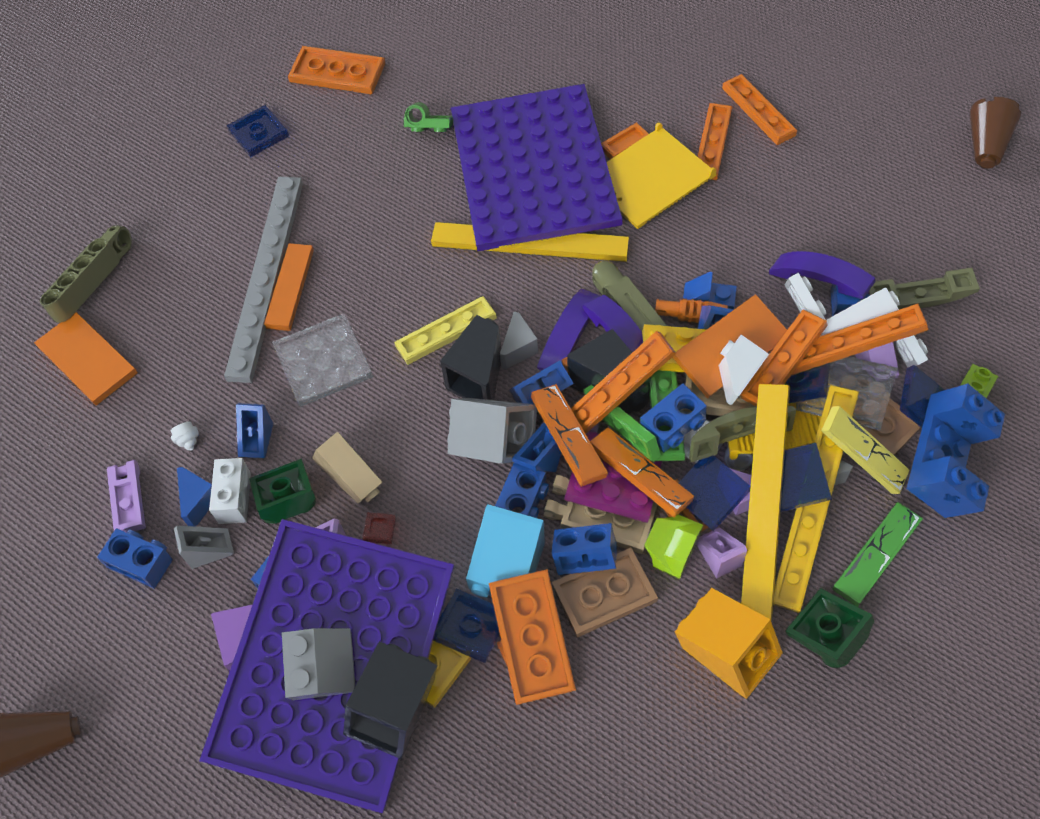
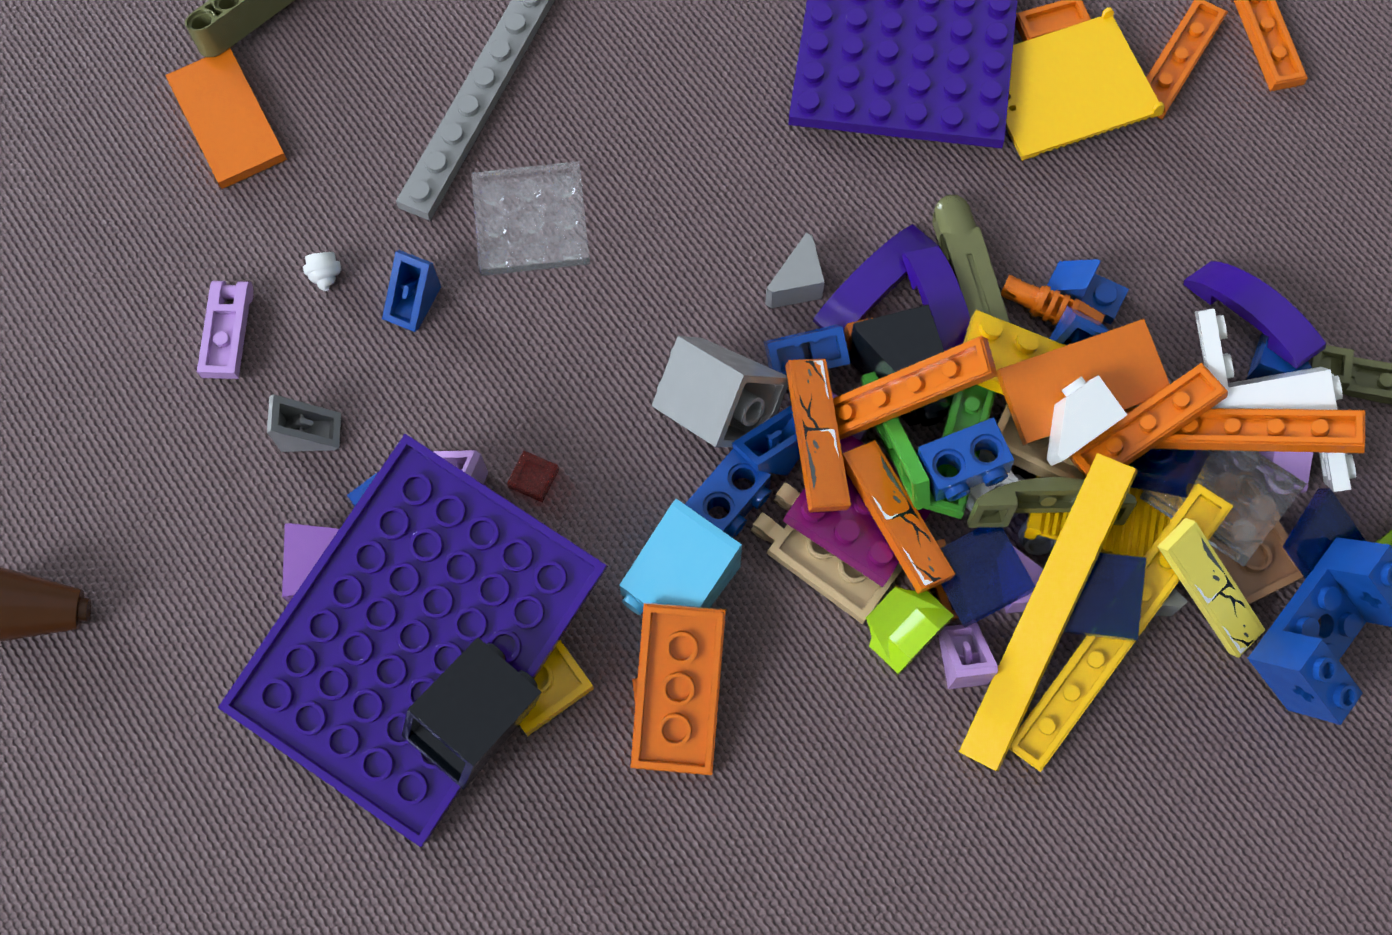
camera: 15 degrees right, 10 degrees up
(133, 560) = (212, 417): blue brick -> none
(193, 496) = (310, 358): blue slope -> none
(230, 491) = (357, 365): white brick -> none
(283, 492) = (423, 388): dark green slope -> none
(289, 287) = (519, 98): orange tile -> none
(318, 662) = (395, 637): light grey slope -> none
(347, 468) = (515, 386): tan slope -> none
(442, 330) = (708, 227): light yellow tile -> none
(468, 626) = (602, 646): clear blue tile -> none
(474, 361) = (729, 288): black slope -> none
(575, 245) = (922, 157): yellow tile -> none
(584, 549) = (786, 596): blue brick -> none
(604, 595) = (793, 660): medium nougat plate -> none
(730, 641) = (932, 780): light orange slope -> none
(831, 628) = (1072, 809): dark green slope -> none
(877, 554) = (1175, 729): bright green tile -> none

